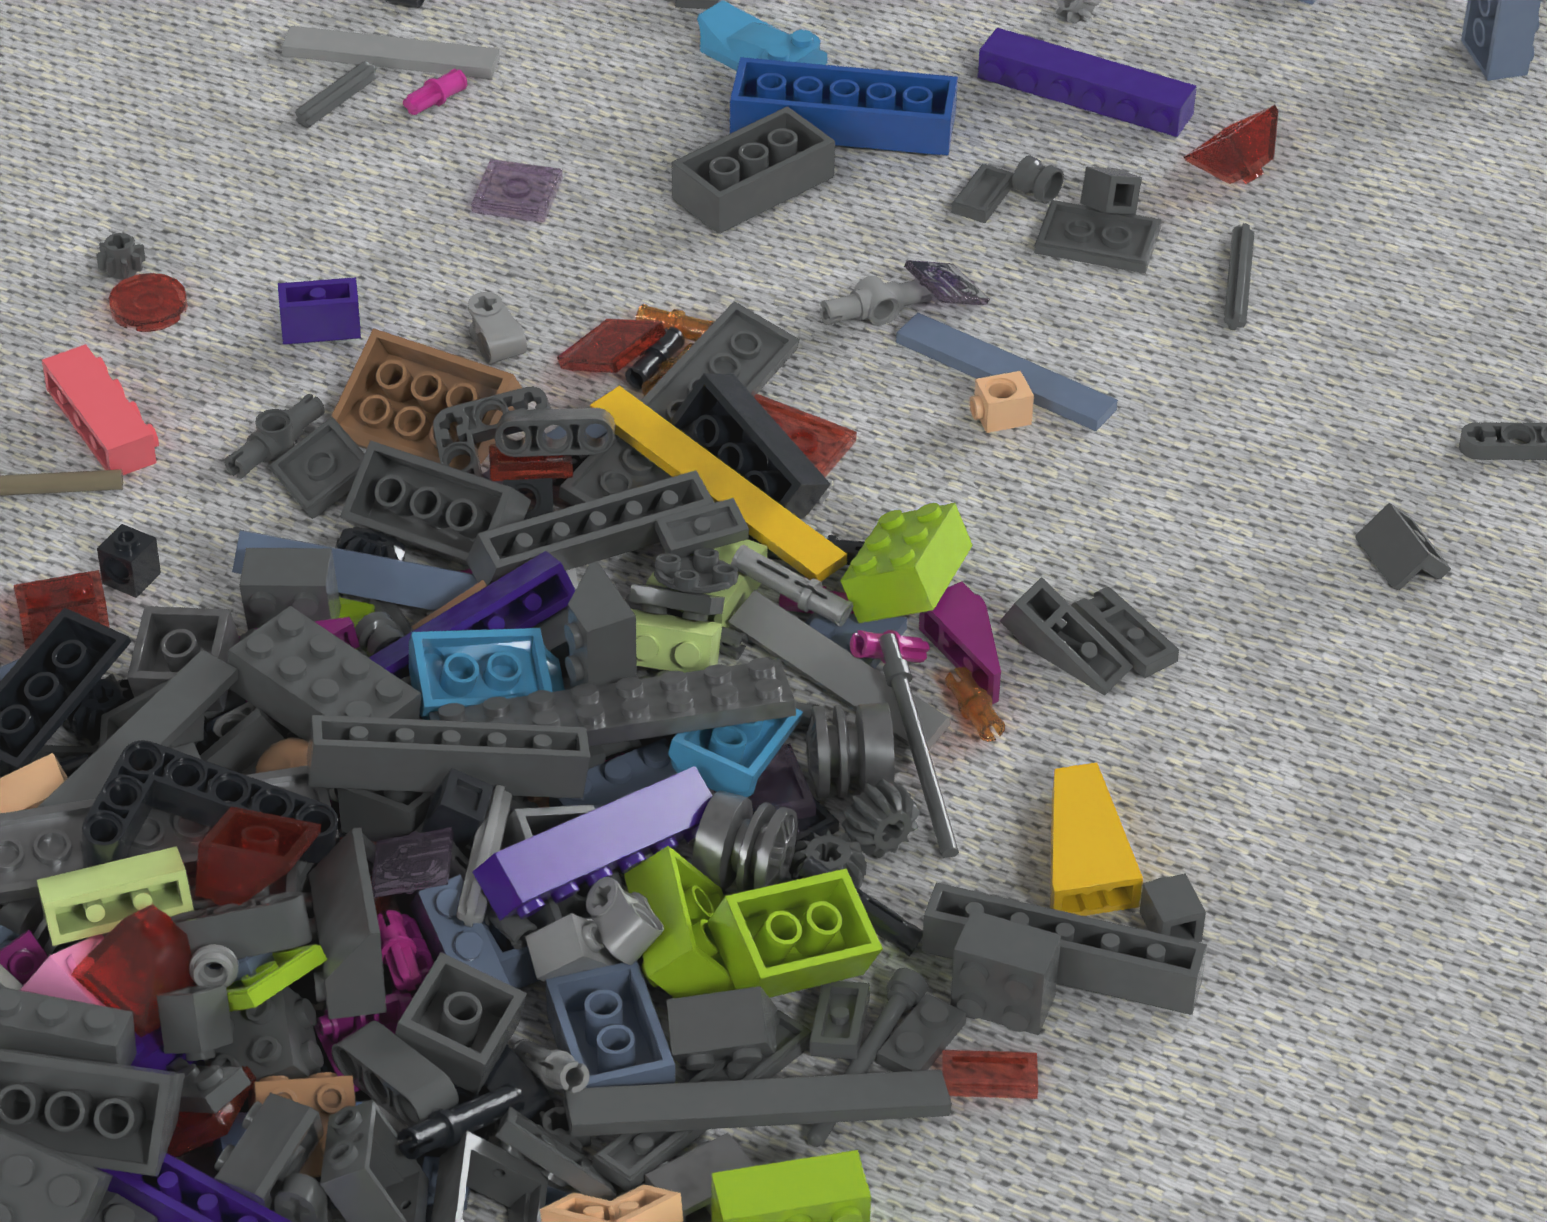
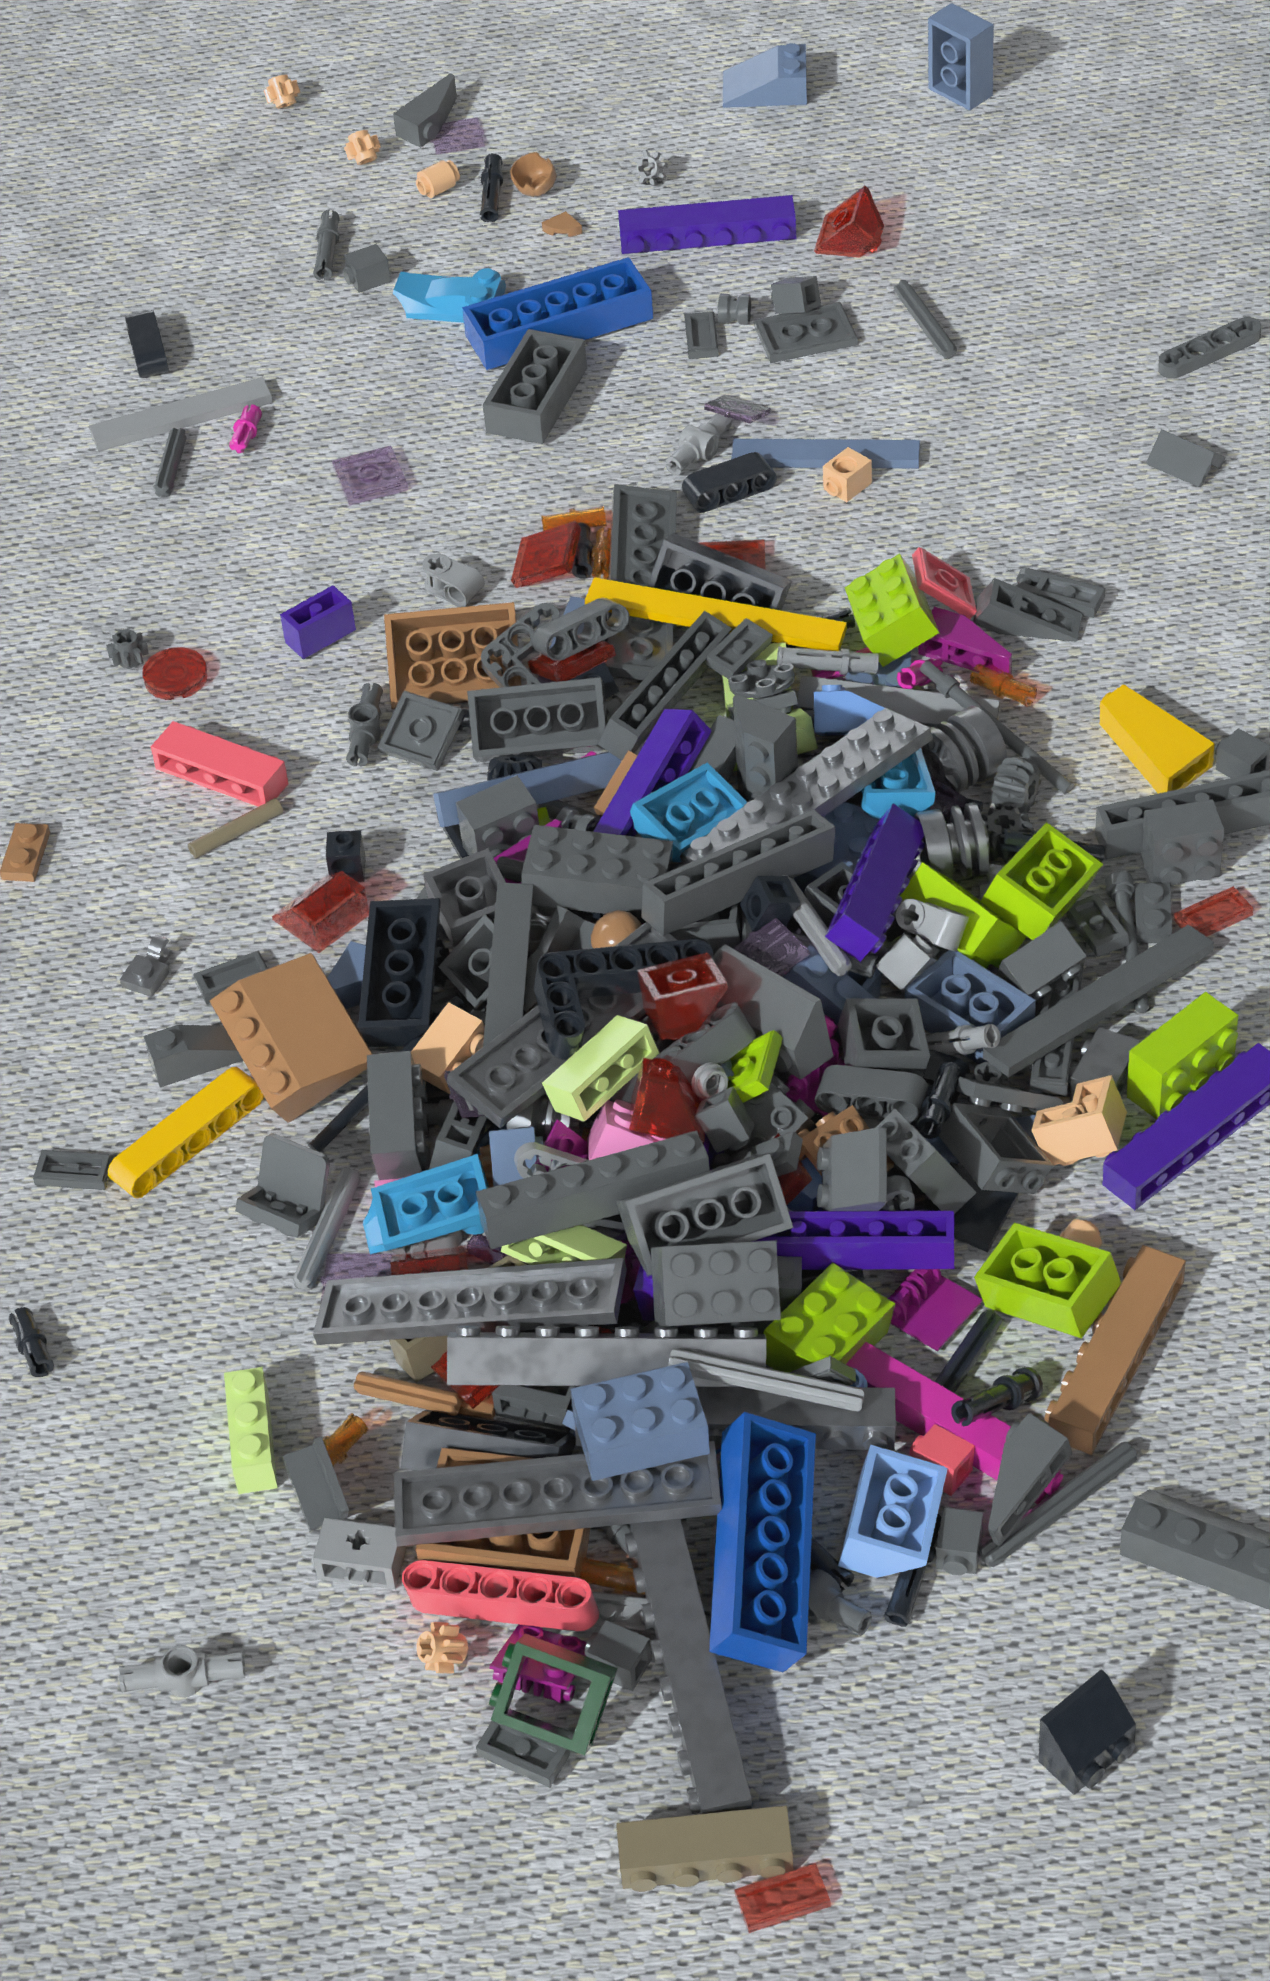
camera: 25 degrees left, 5 degrees up
(751, 635) = (840, 711): none -> medium blue slope
(871, 355) = (728, 482): none -> black beam
(939, 22) = (562, 224): none -> medium nougat tile
(995, 561) = (944, 582): none -> coral tile

